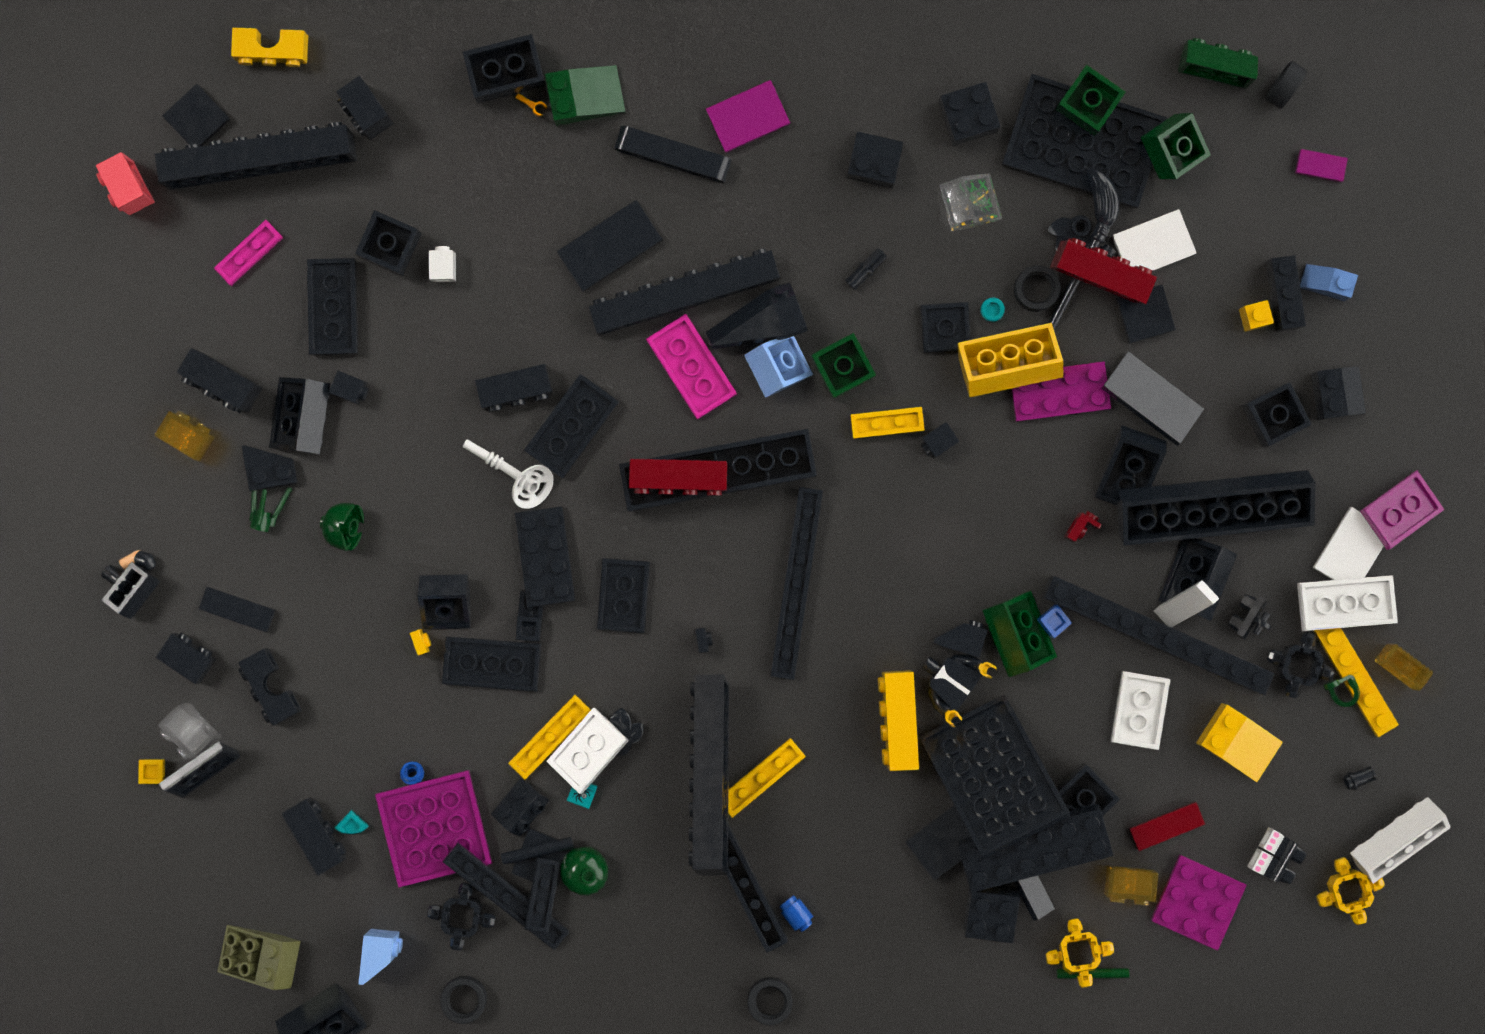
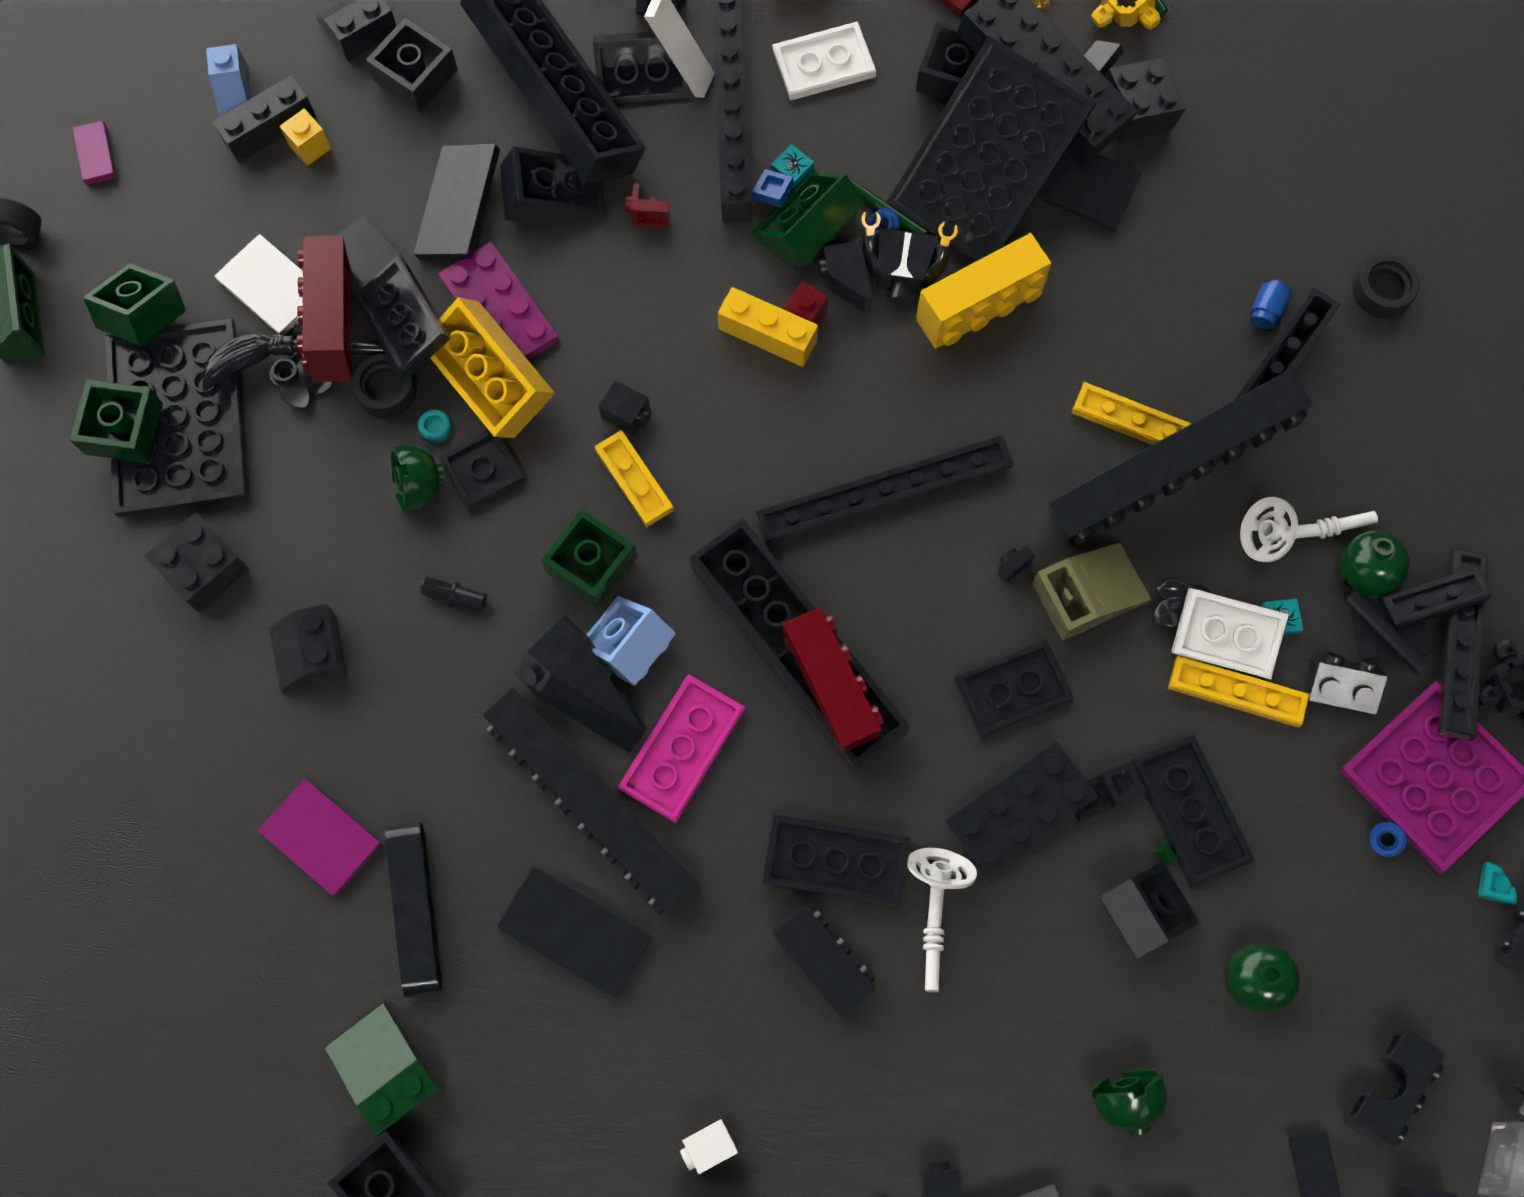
camera: 115 degrees left, 15 degrees down
(371, 647) = (1262, 978): none -> dark green cylinder
(421, 641) = (1218, 913): yellow plate -> none
(475, 631) = (1165, 852): none -> dark green piece
(531, 104) = (429, 1137): light orange hand -> none
(636, 823) = (1279, 531): none -> white dish
(660, 680) = (1089, 589): none -> olive slope
(950, 564) = (767, 326): none -> yellow brick
(950, 596) = (807, 303): none -> dark red brick
(957, 280) = (415, 476): none -> dark green cylinder
(970, 201) = (311, 511): clear slope -> none
(989, 690) = (885, 213): none -> blue plate
(1007, 689) = (878, 203): none -> dark green bar
(1067, 645) = (793, 163): none -> teal tile
(1076, 320) = (402, 318): none -> black tile

